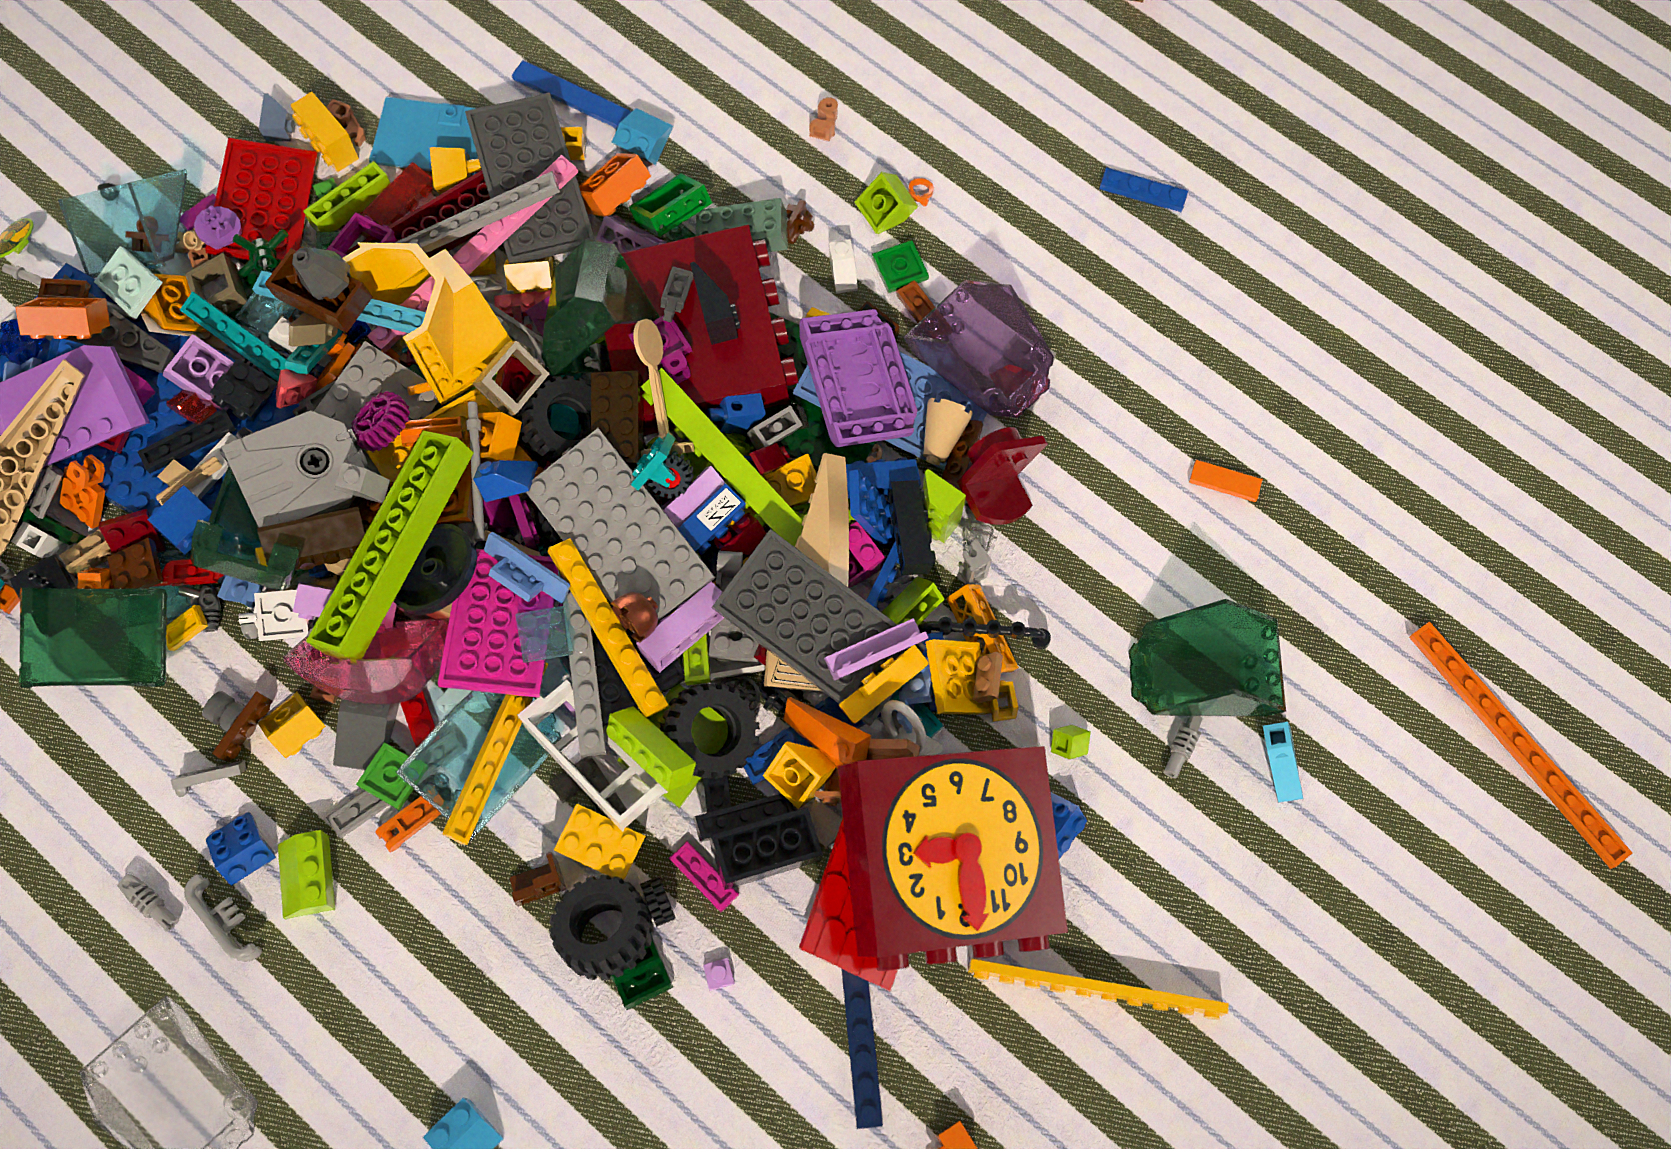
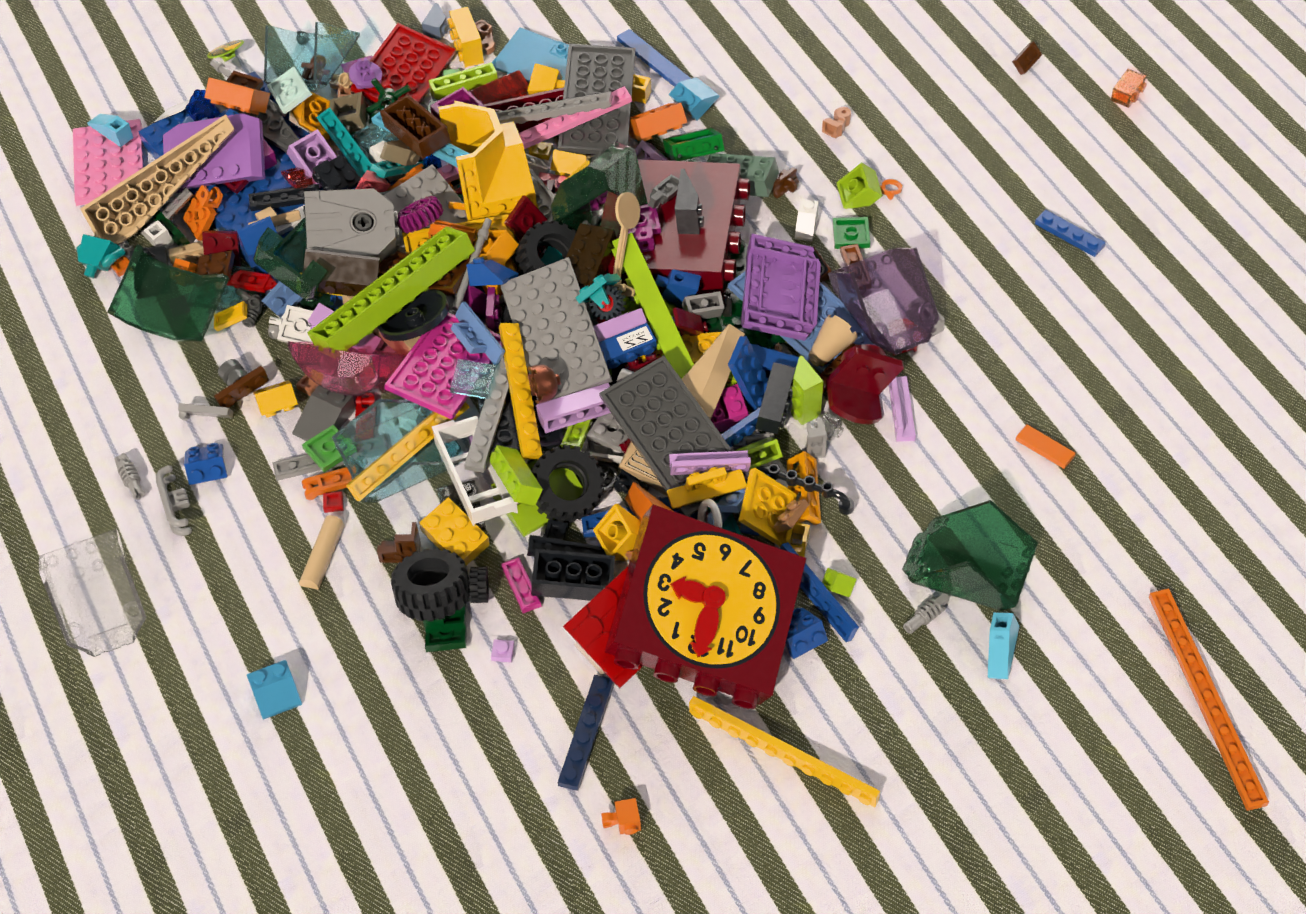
camera: 25 degrees right, 15 degrees down
(306, 874) = (243, 493): lime slope -> none
(321, 271) = (420, 108): dark grey cone -> none
(361, 483) = (388, 244): light grey slope -> none
(426, 844) = (333, 502): none -> red tile
(442, 922) = (322, 552): none -> tan brick
(495, 393) = (507, 218): dark tan window -> none
(1052, 490) = (901, 409): none -> lavender fence
(1058, 767) = (825, 601): none -> blue plate

